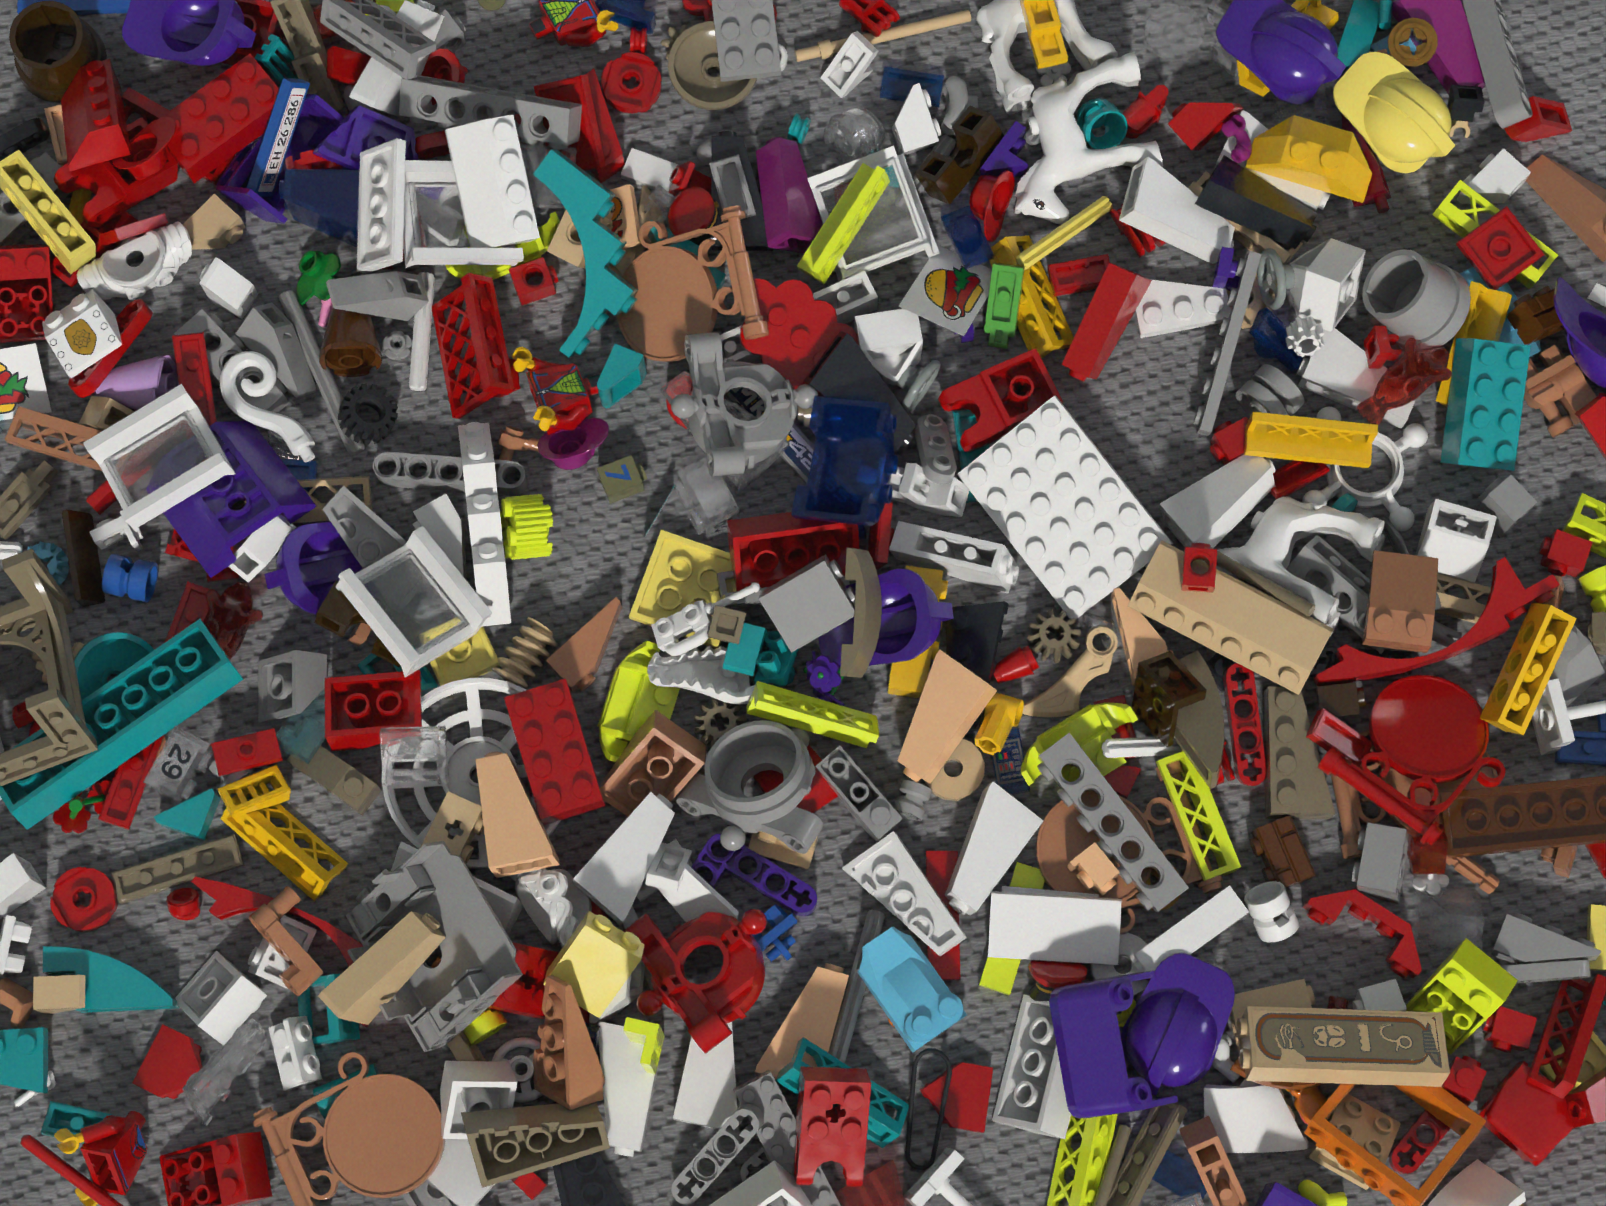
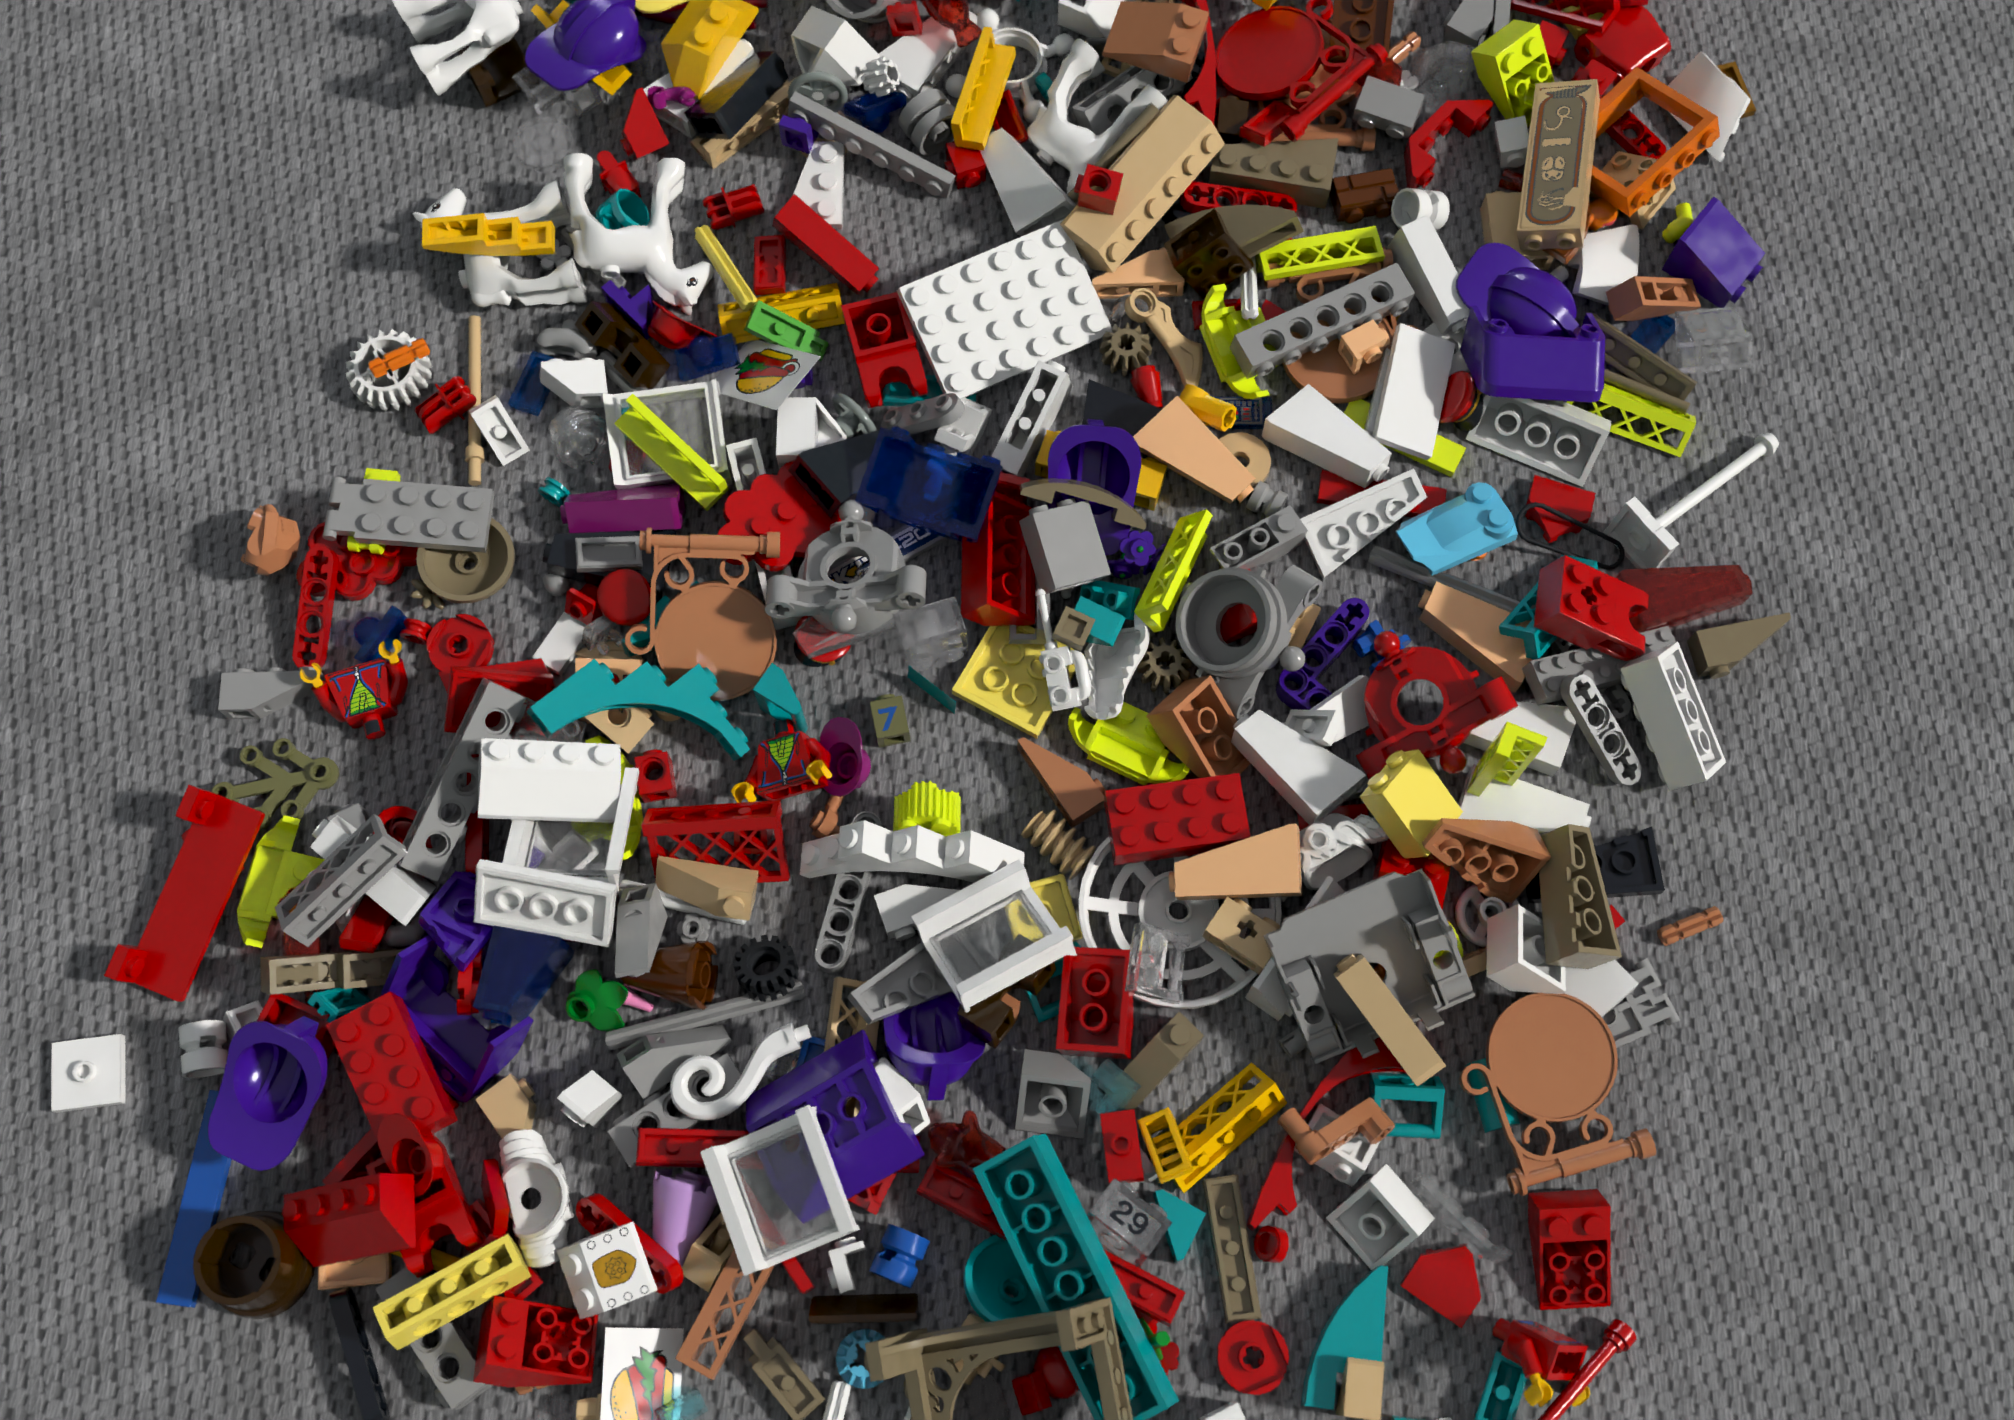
camera: 80 degrees left, 5 degrees down
(278, 136) = (429, 1011): tile -> none
(295, 1052) = (1449, 1143): white bracket -> none
(432, 354) = (711, 887): none -> tan slope
(1168, 211) = (730, 166): white slope -> none

